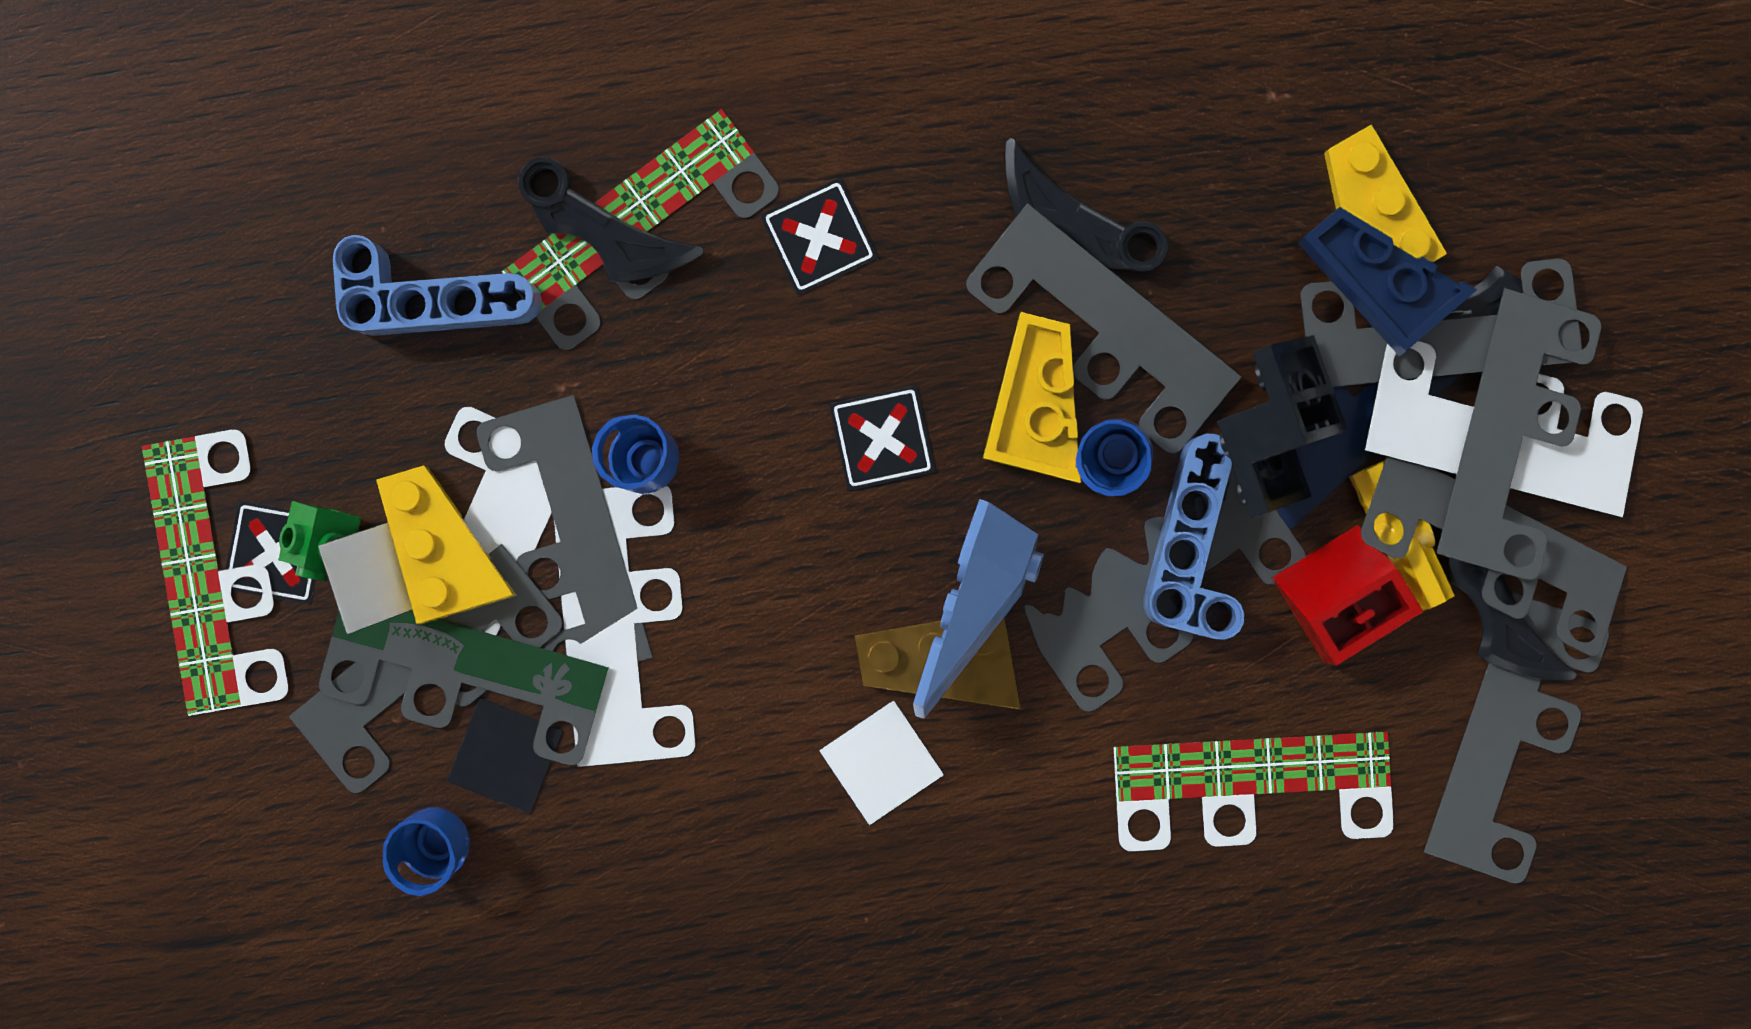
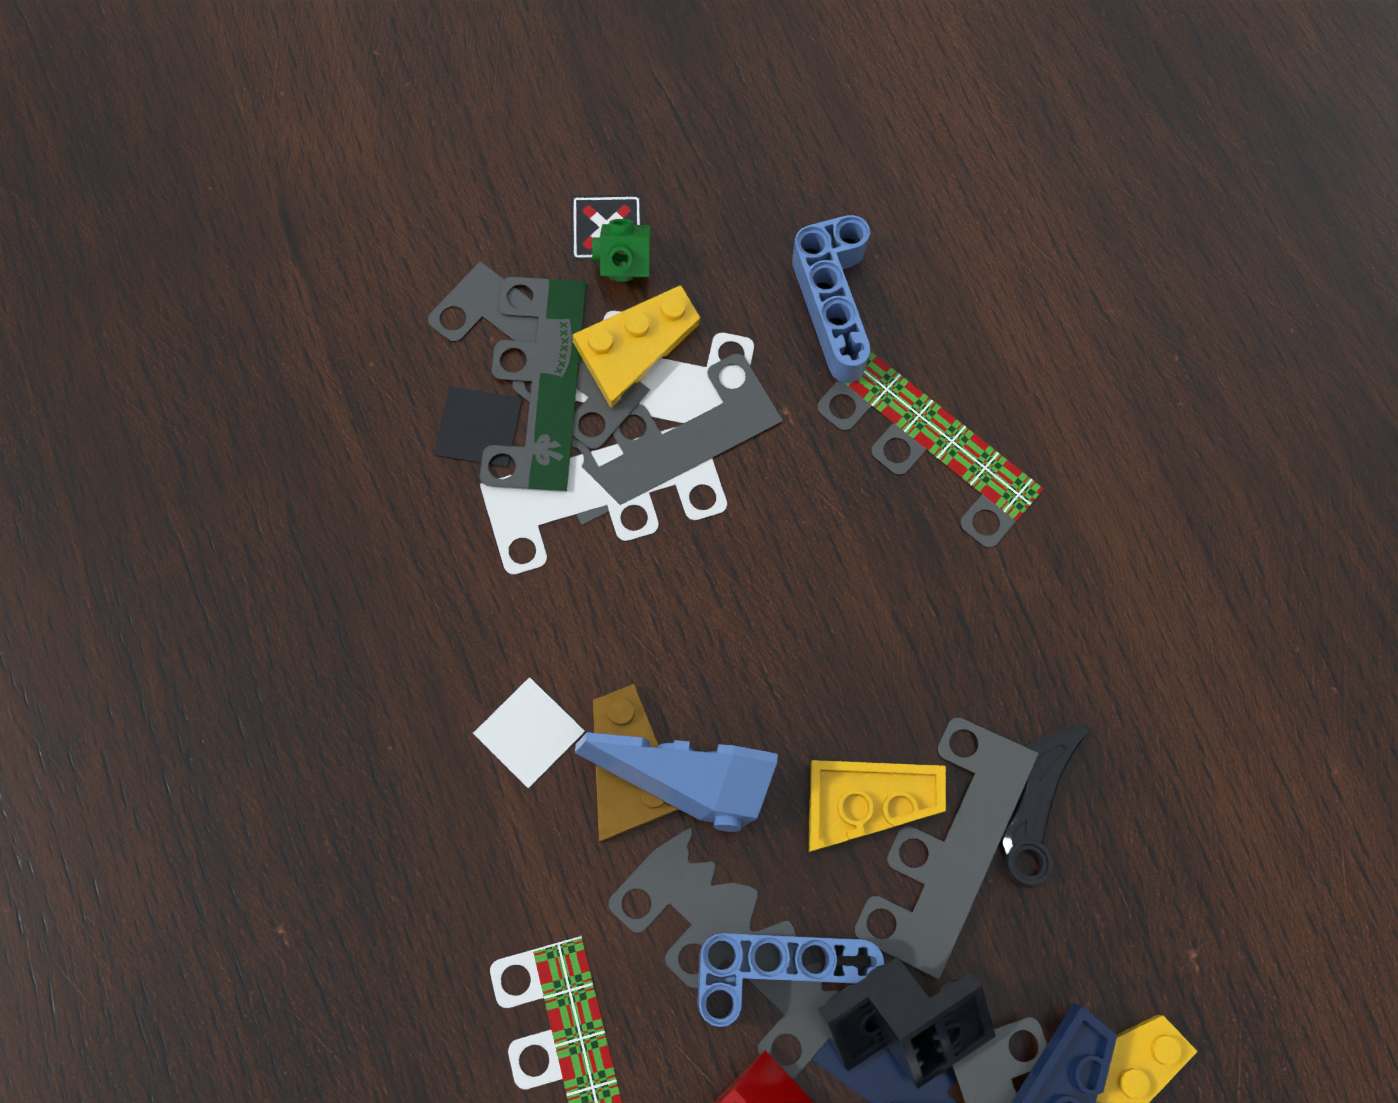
camera: 70 degrees right, 15 degrees down
(194, 587) = (569, 176): piece -> none
(366, 577) = (601, 286): white sticker -> none
(407, 844) = (395, 362): blue helmet -> none
(624, 249) = (911, 433): black piece -> none
(653, 464) = (764, 472): blue helmet -> none
(819, 236) = (962, 587): black sticker -> none
(882, 438) = (807, 674): black sticker -> none
(1125, 458) = (848, 886): blue helmet -> none

